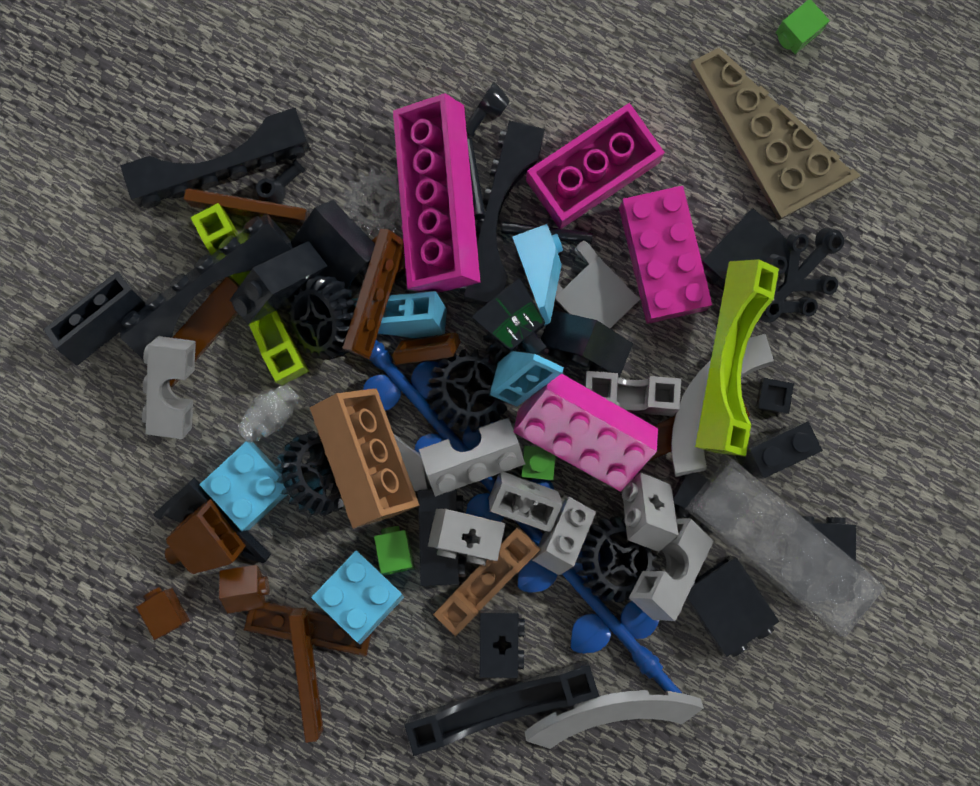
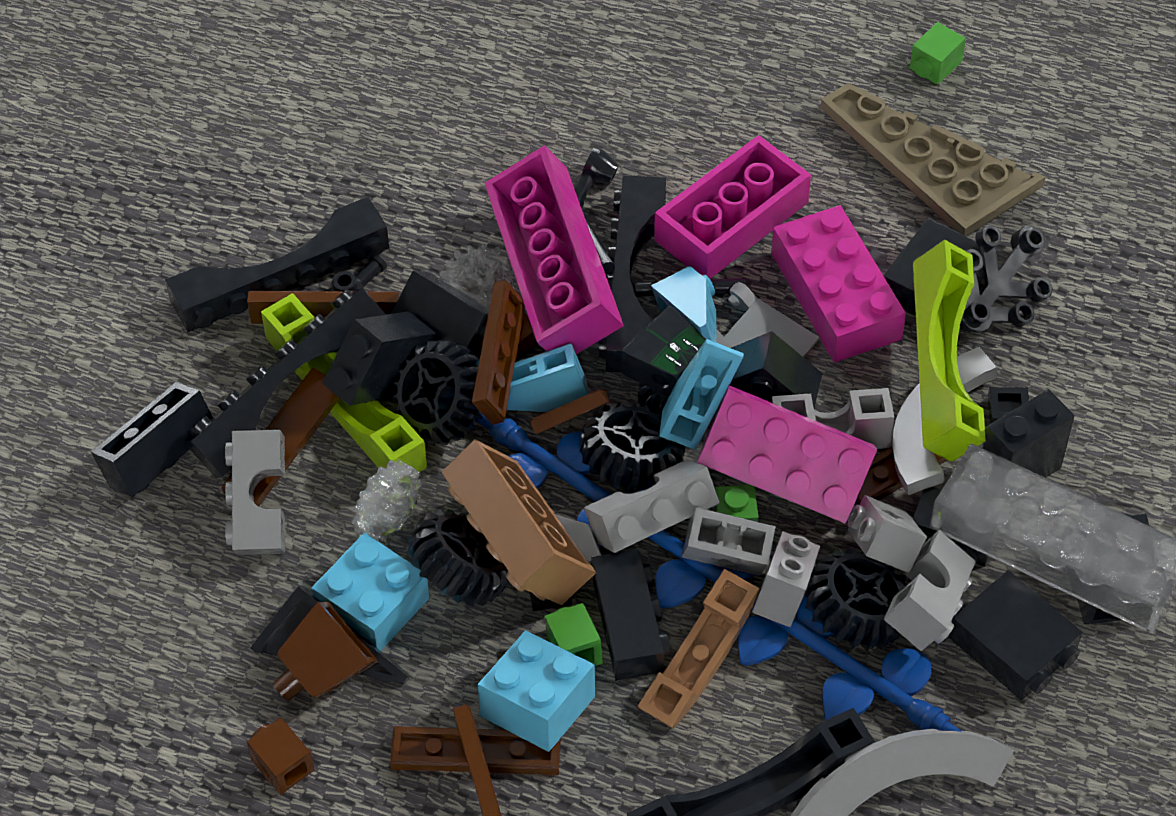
camera: 10 degrees left, 30 degrees down
(243, 588) = (384, 707): reddish brown brick -> none
(483, 533) = (663, 587): light grey brick -> none
(495, 662) = (732, 744): black brick -> none

